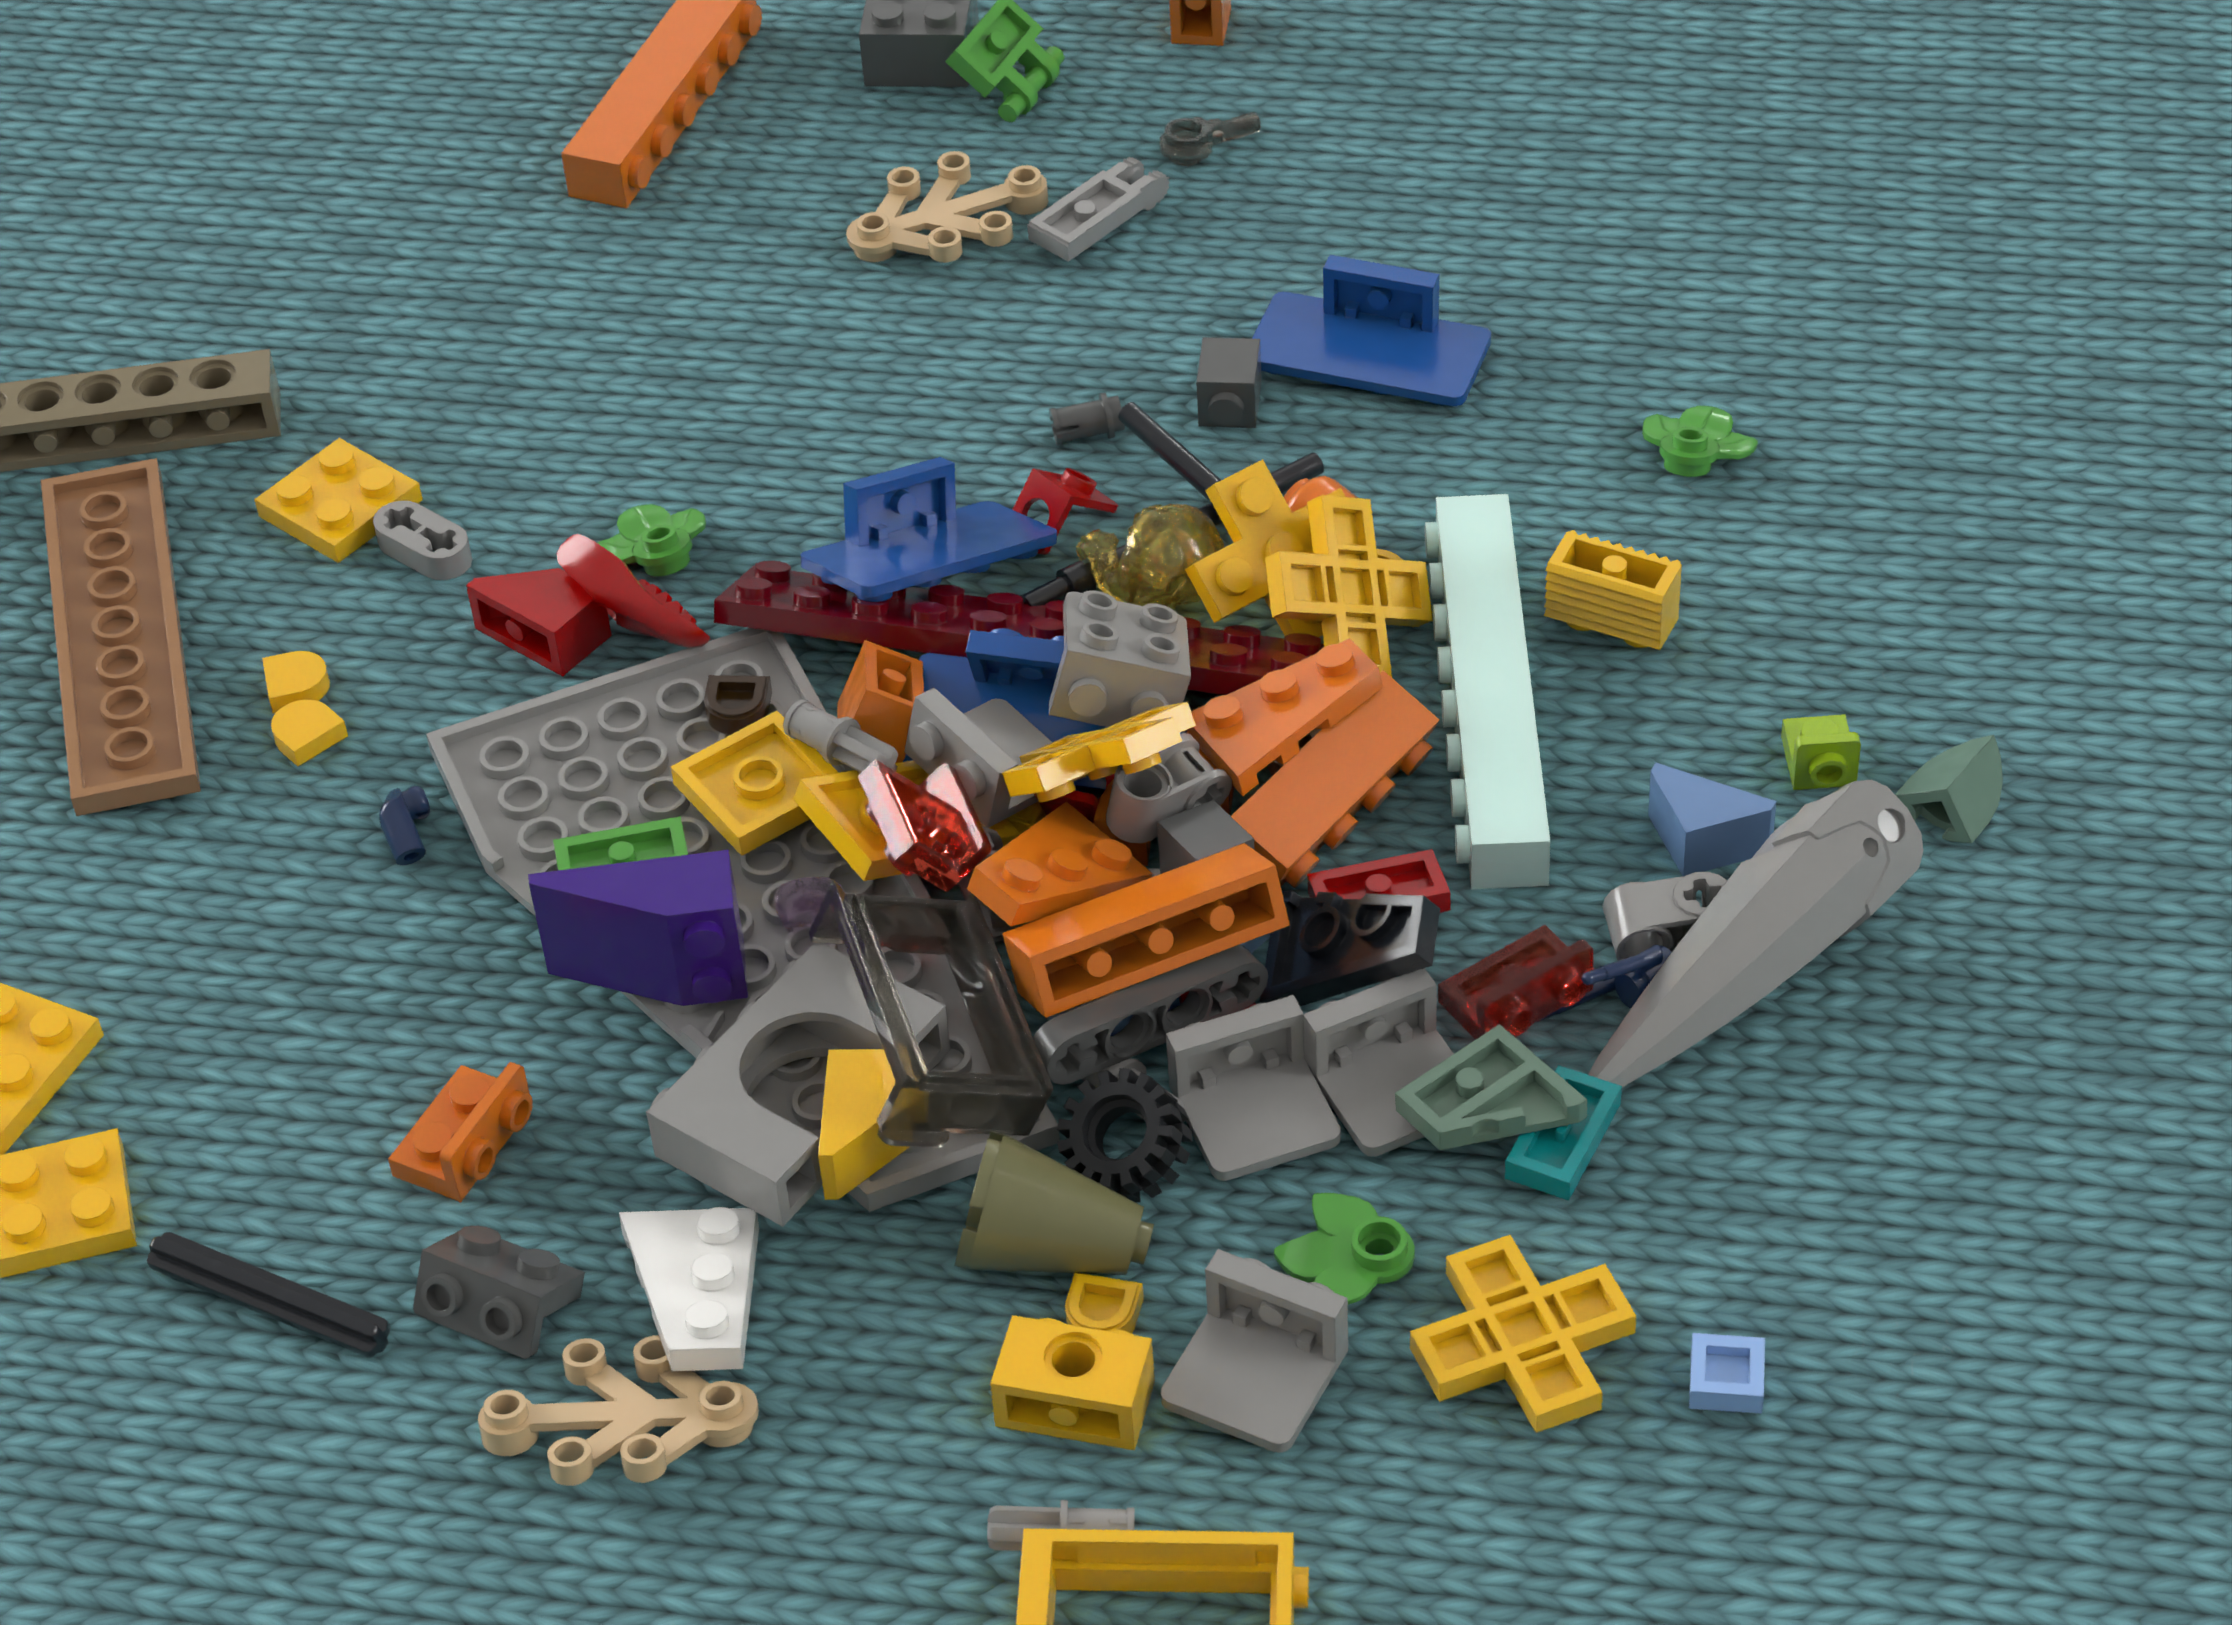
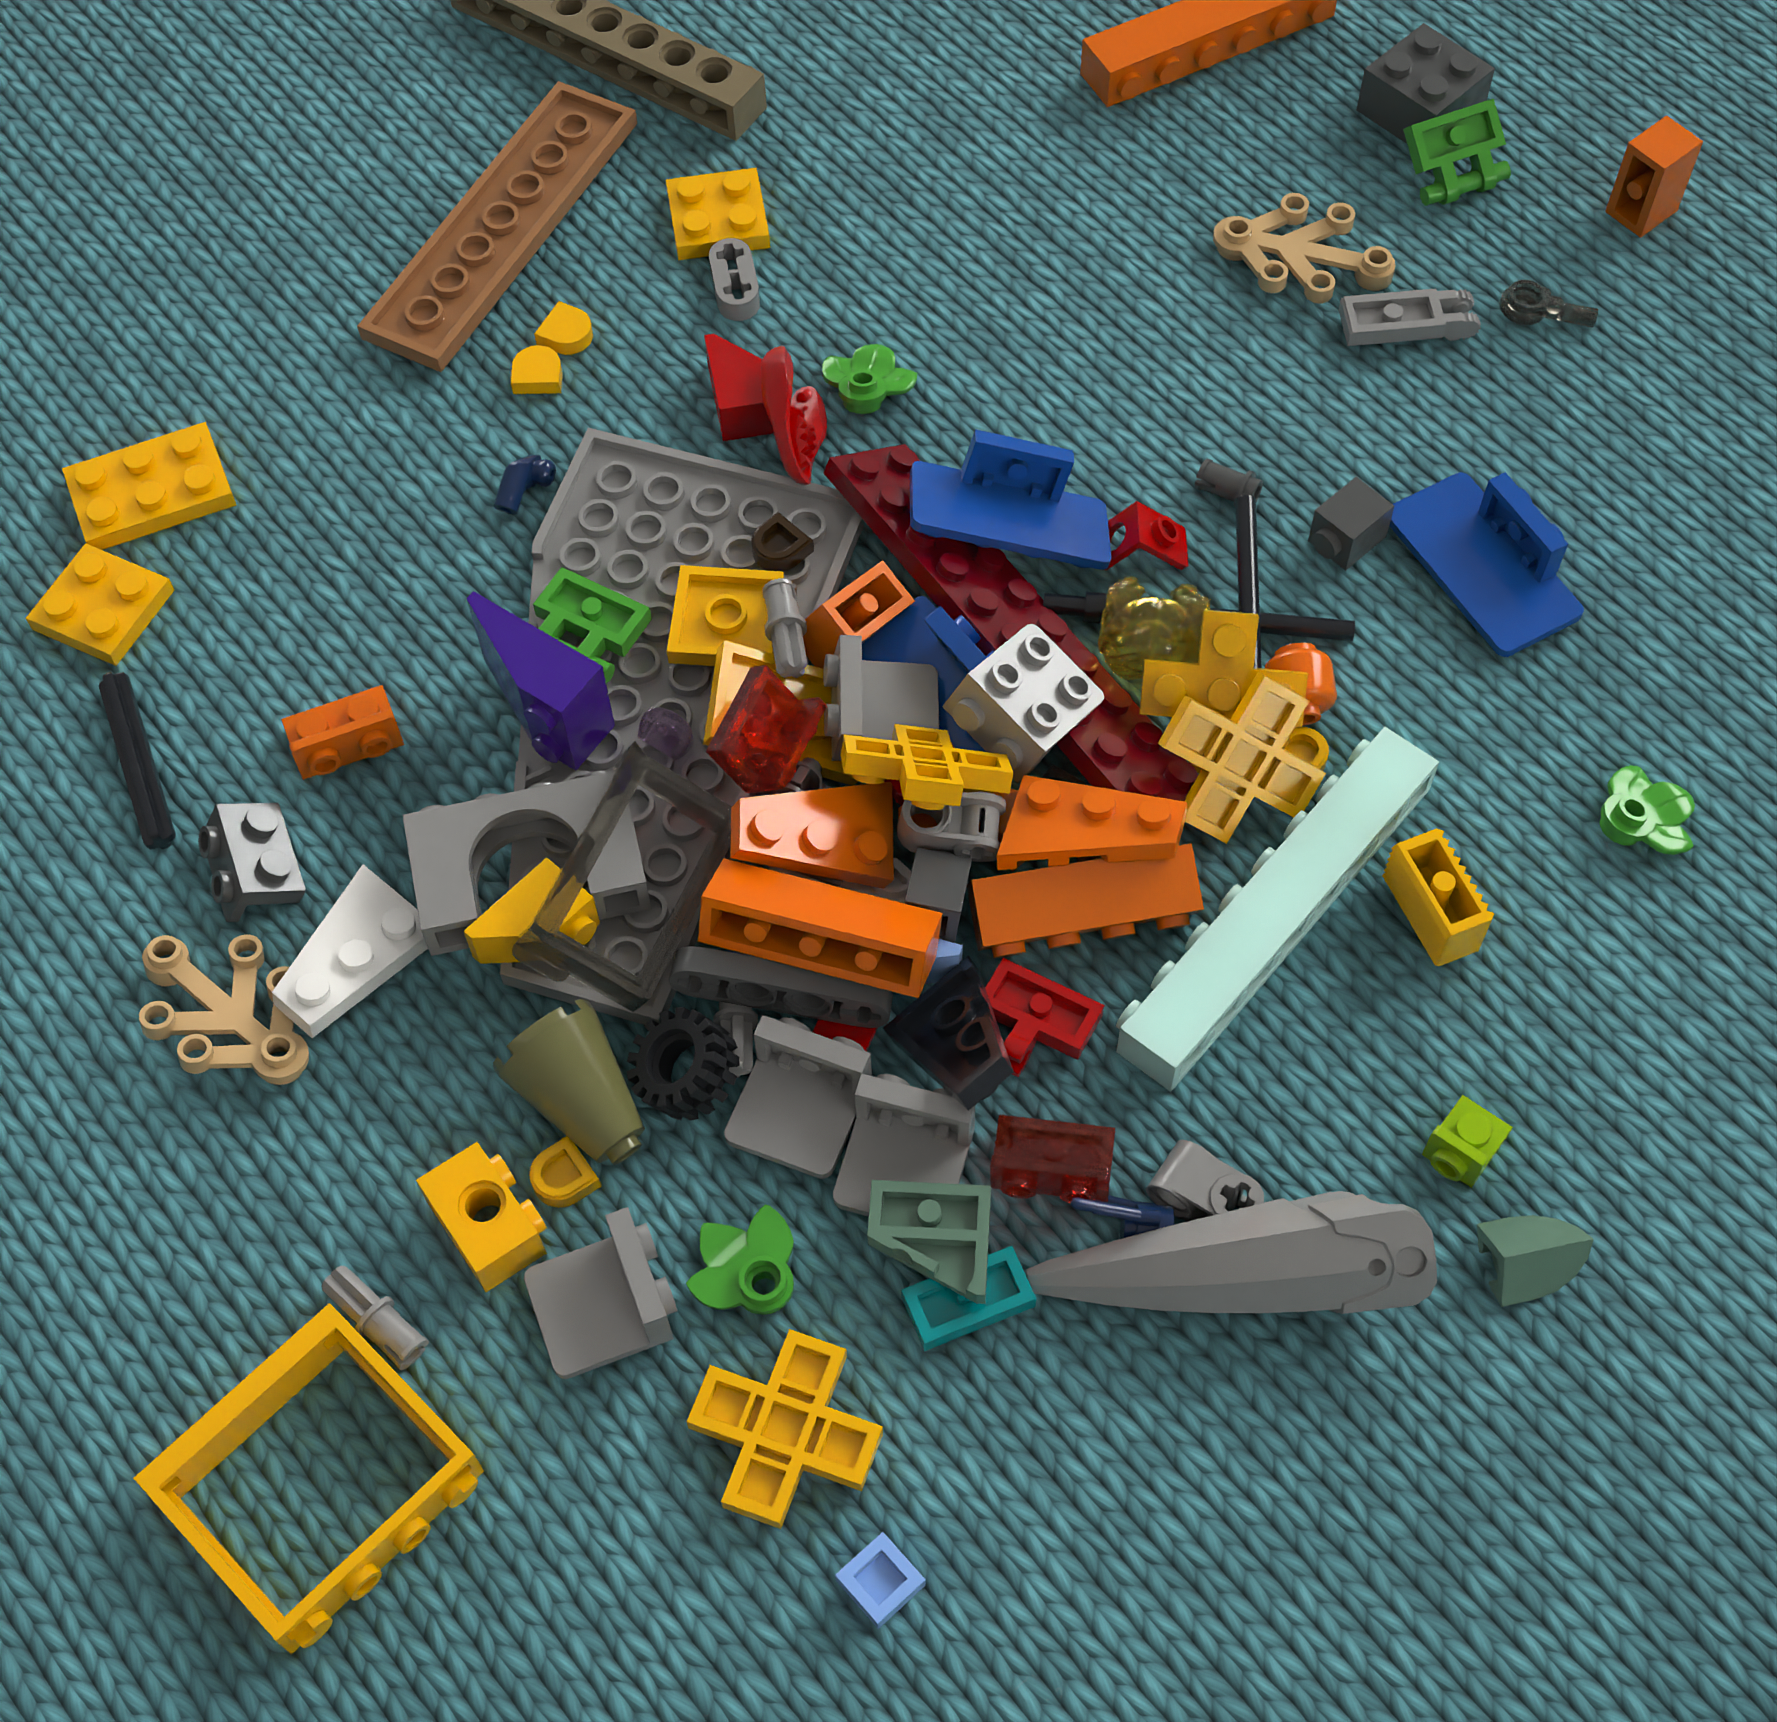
camera: 40 degrees right, 15 degrees up
(1706, 821) = (1317, 1137): medium blue slope -> none

